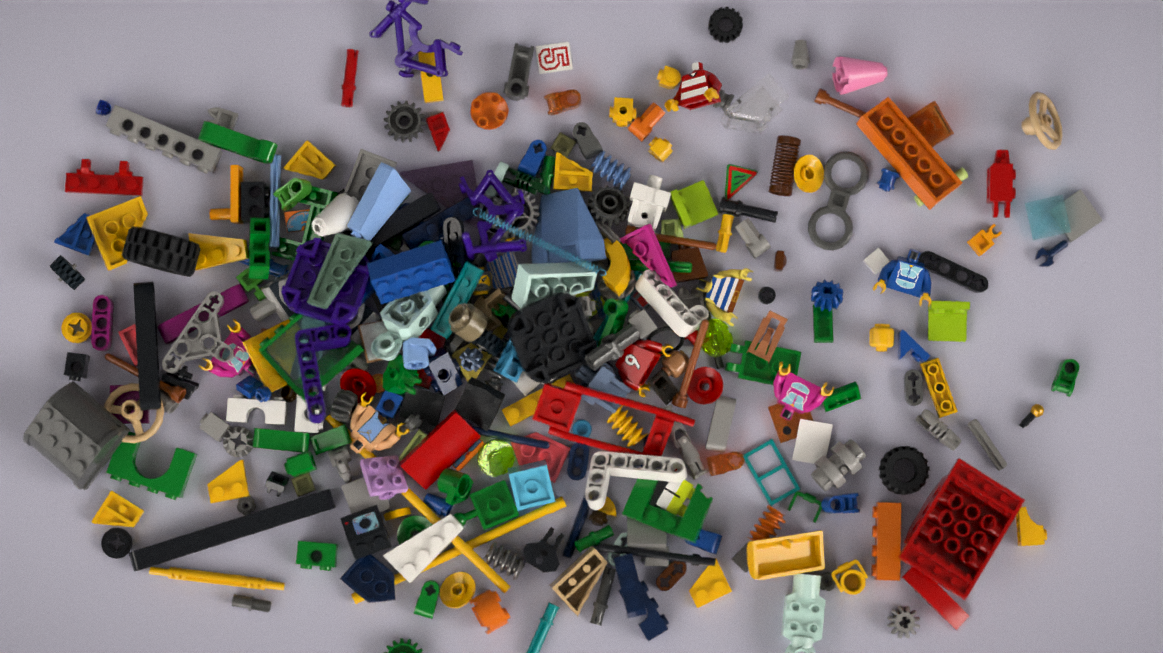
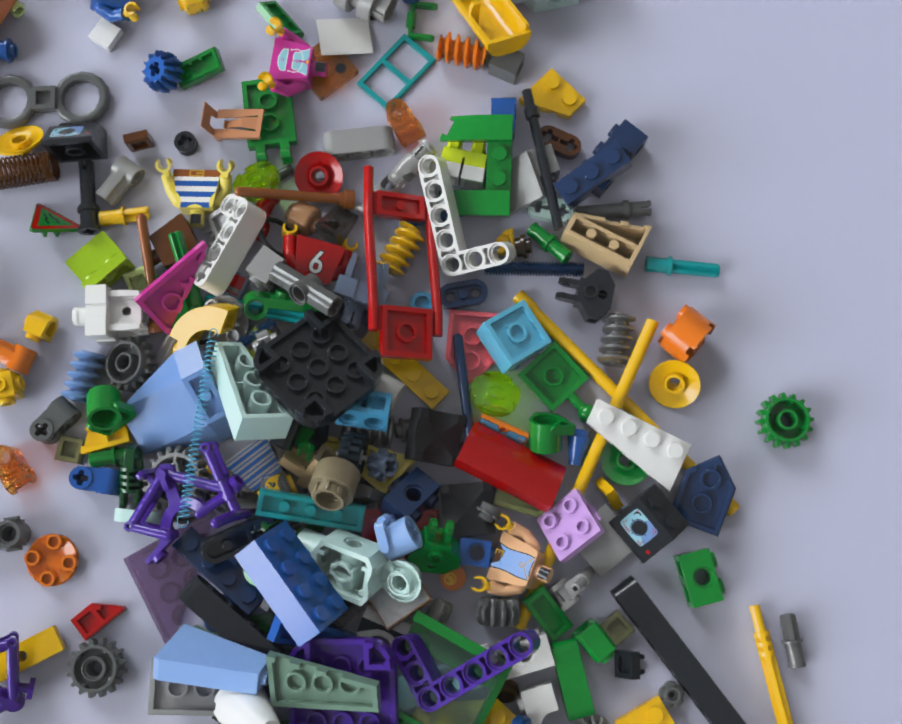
camera: 105 degrees left, 5 degrees down
(350, 381) = (462, 615): red dish -> none
(427, 603) = (703, 417): green piece -> none
(578, 180) = (105, 410): none -> green piece
(793, 216) = (76, 142): none -> black slope

